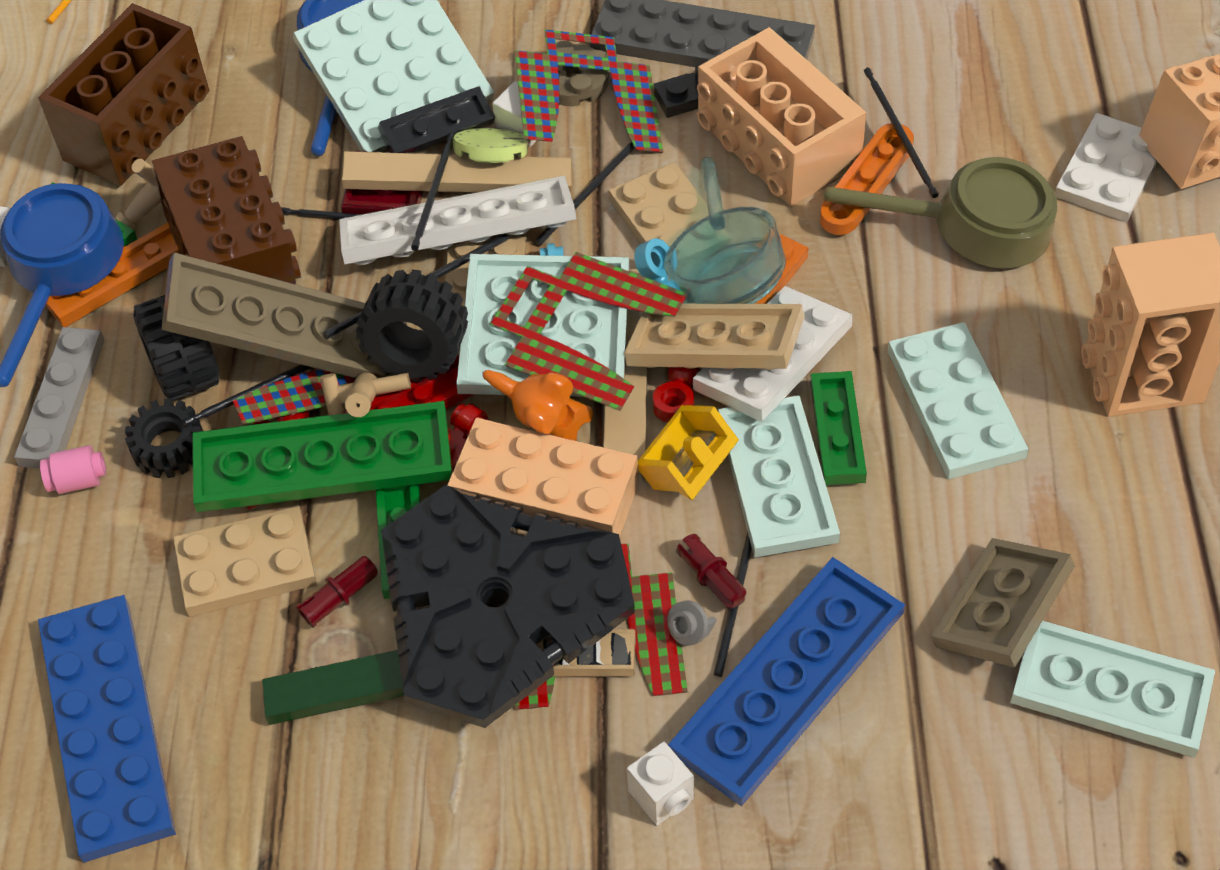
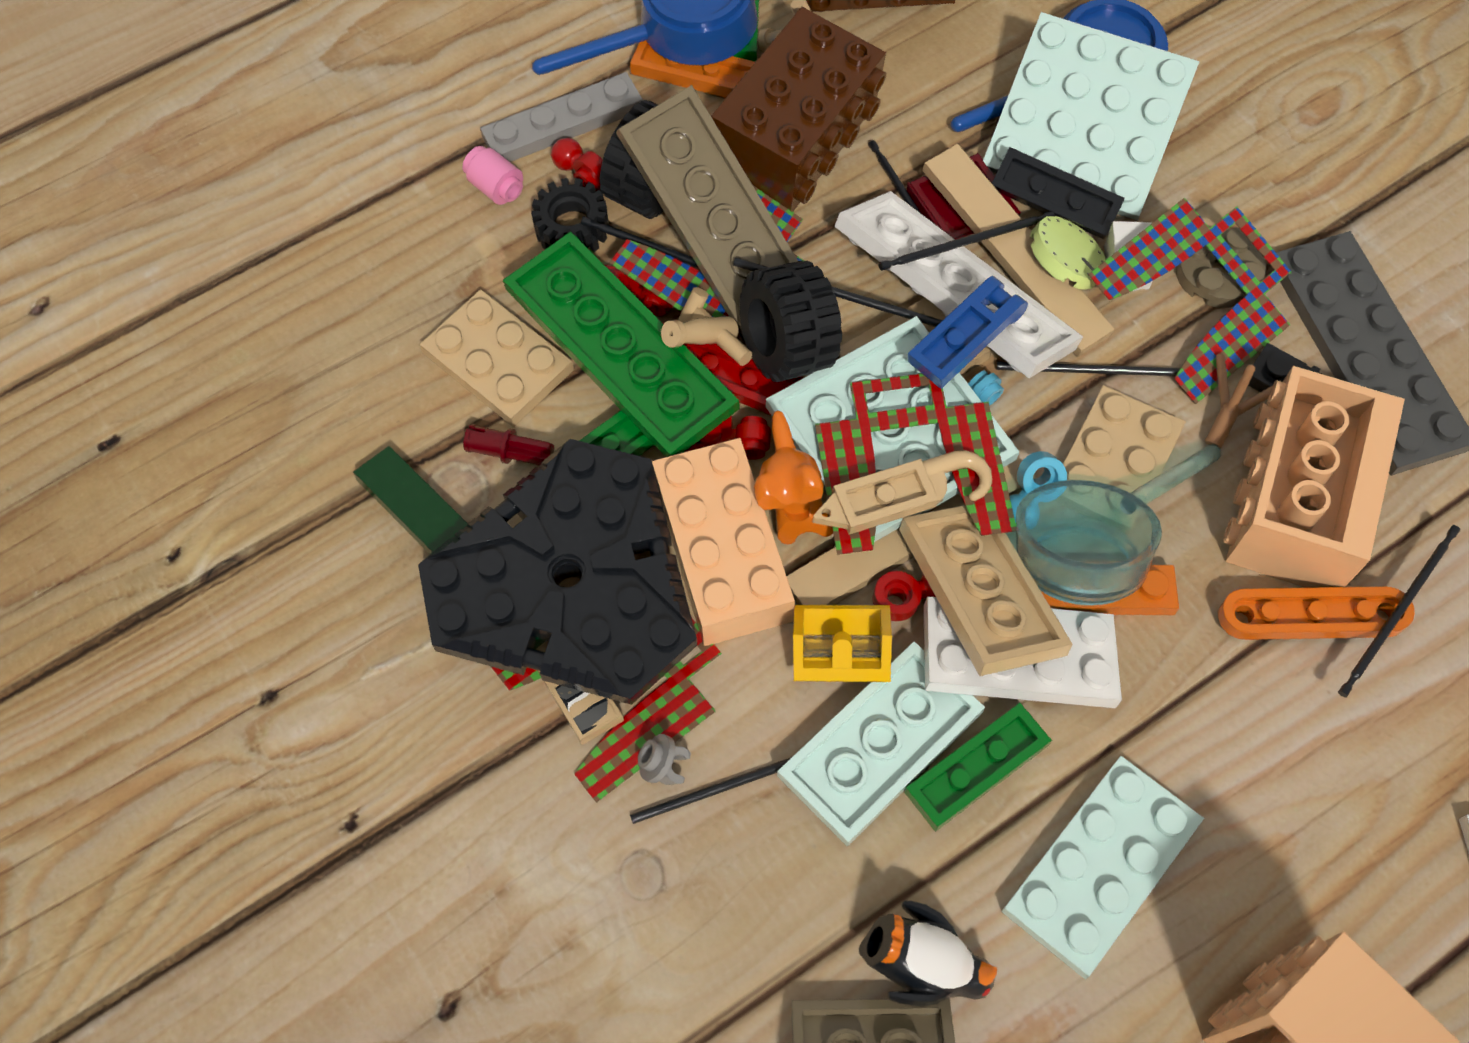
camera: 55 degrees right, 10 degrees up
(104, 408) = (569, 156): none -> red plate
(105, 729) = (282, 363): blue plate -> none
(516, 227) = (966, 332): none -> blue plate
(606, 340) = (898, 491): none -> tan plate
(660, 783) = (471, 838): white brick -> none
(687, 120) = (1230, 407): none -> medium nougat plant
(712, 571) = (731, 746): dark red axle -> none
(786, 680) = (660, 887): blue plate -> none
(955, 531) = (925, 958): none -> animal
(990, 213) = (1365, 767): olive piece -> none

